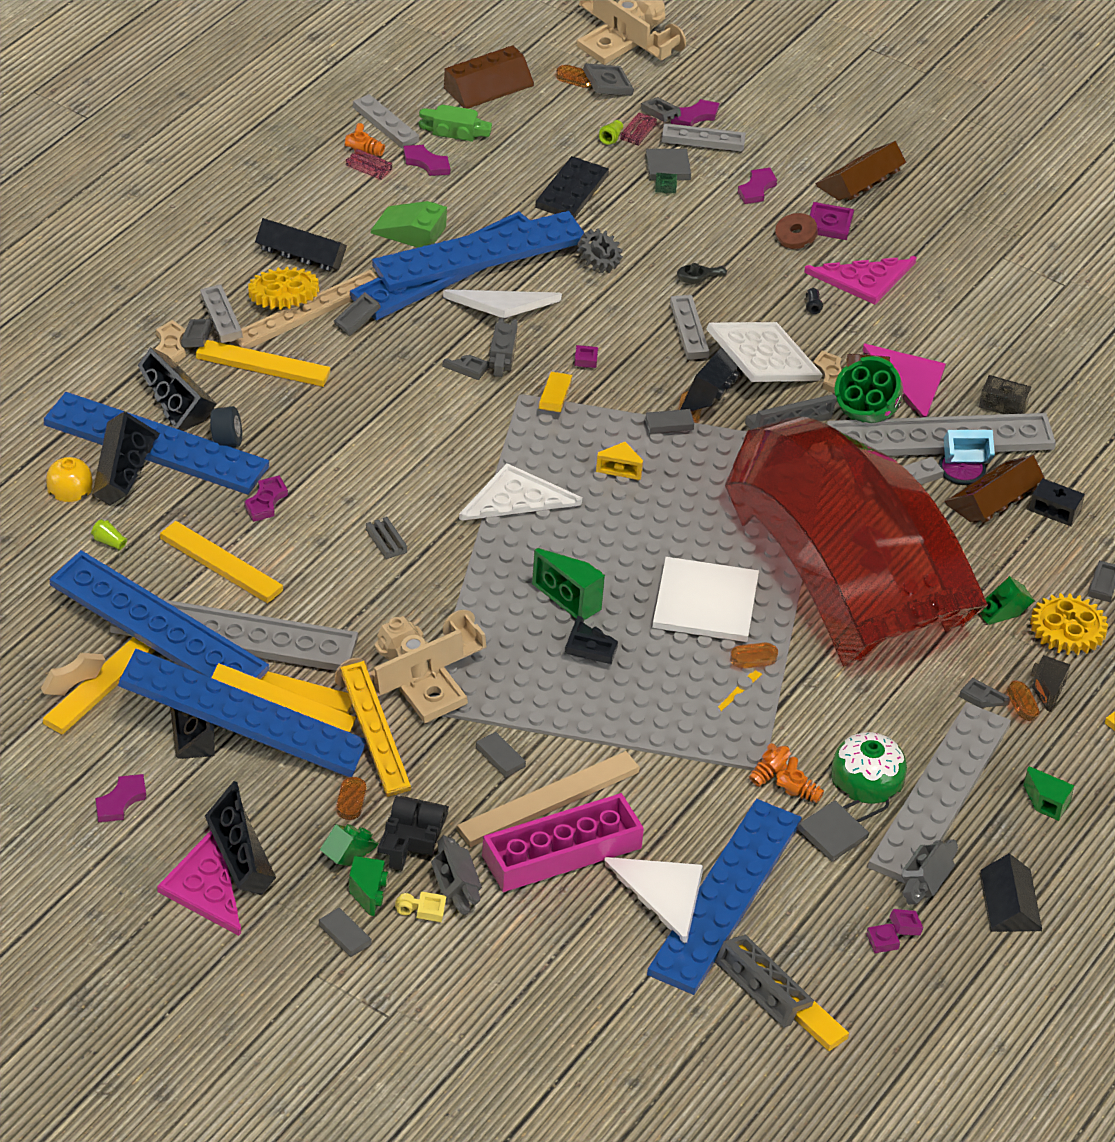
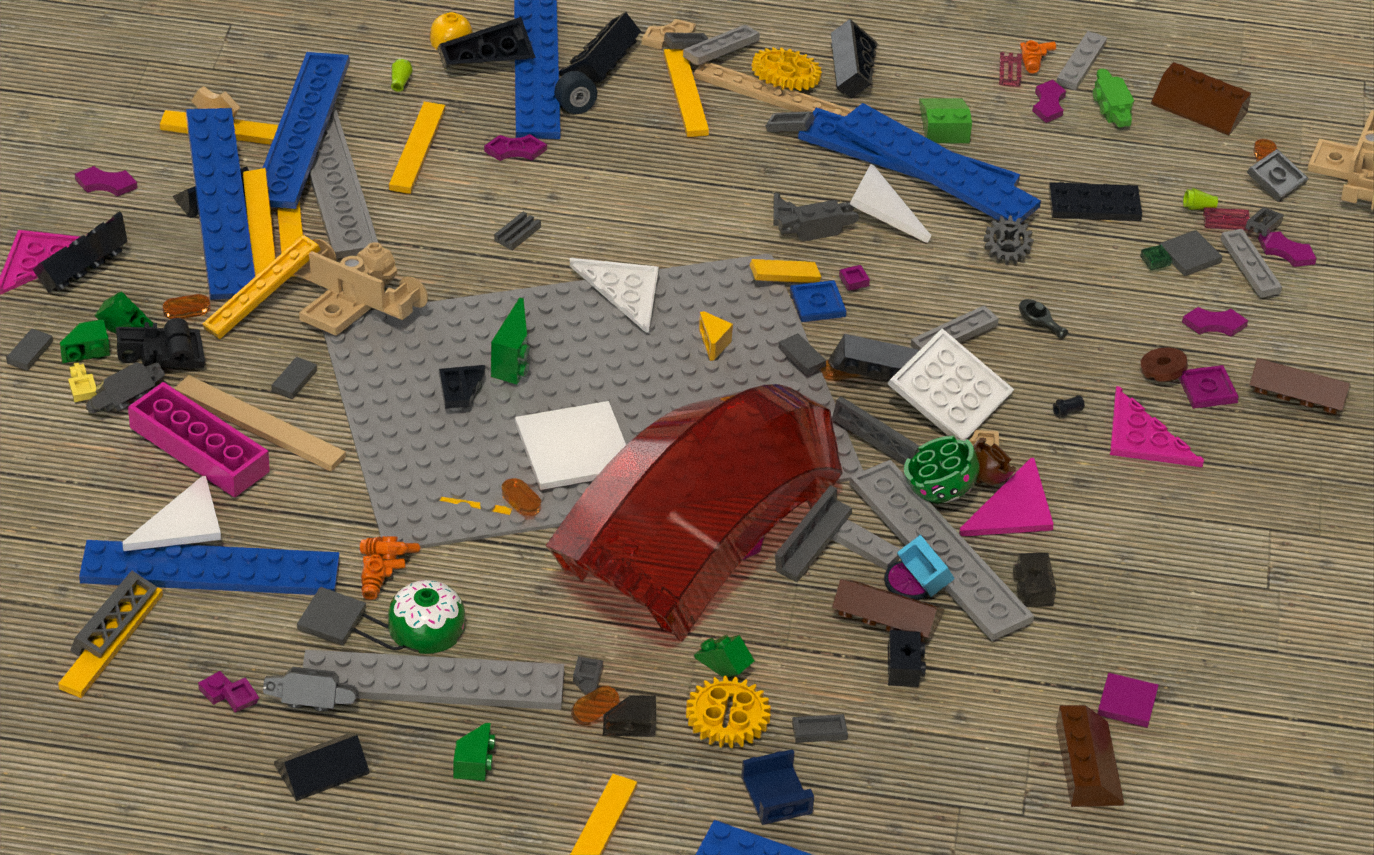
camera: 65 degrees right, 0 degrees up
(598, 389) = (817, 301): none -> blue tile

